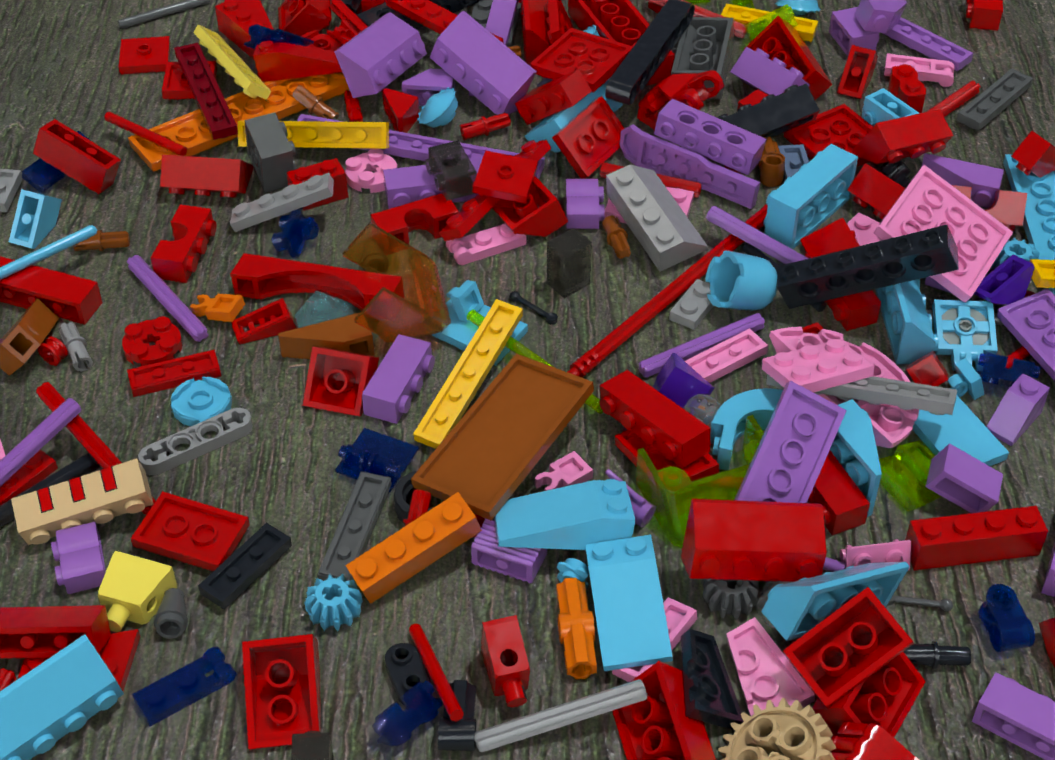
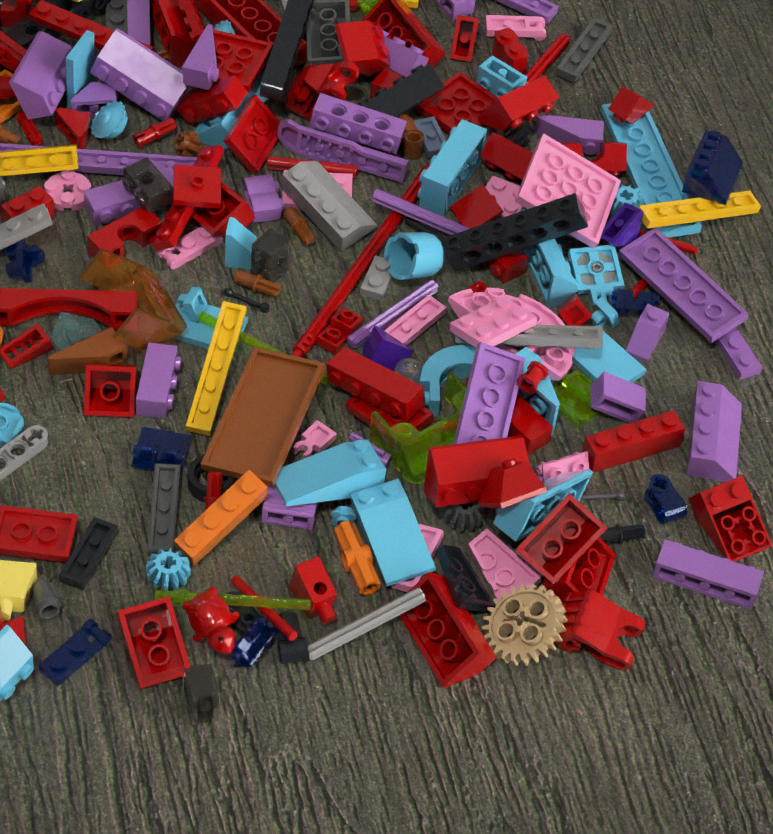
camera: 20 degrees left, 5 degrees up
(341, 639) = (180, 596): none -> clear neon green bar
(359, 670) = (210, 618): none -> red animal
(416, 45) = (79, 64): none -> medium azure tile
(514, 138) = (187, 144): none -> dark orange gear
(533, 244) = (238, 245): none -> medium azure slope
(547, 54) = (201, 66): none -> medium lavender slope
(549, 290) = (256, 283): none -> dark orange axle
(633, 350) = (340, 327): none -> red slope
(736, 61) = (363, 46): none -> red slope
(792, 563) = (511, 484): none -> red slope
(854, 432) = (531, 378): none -> red bush

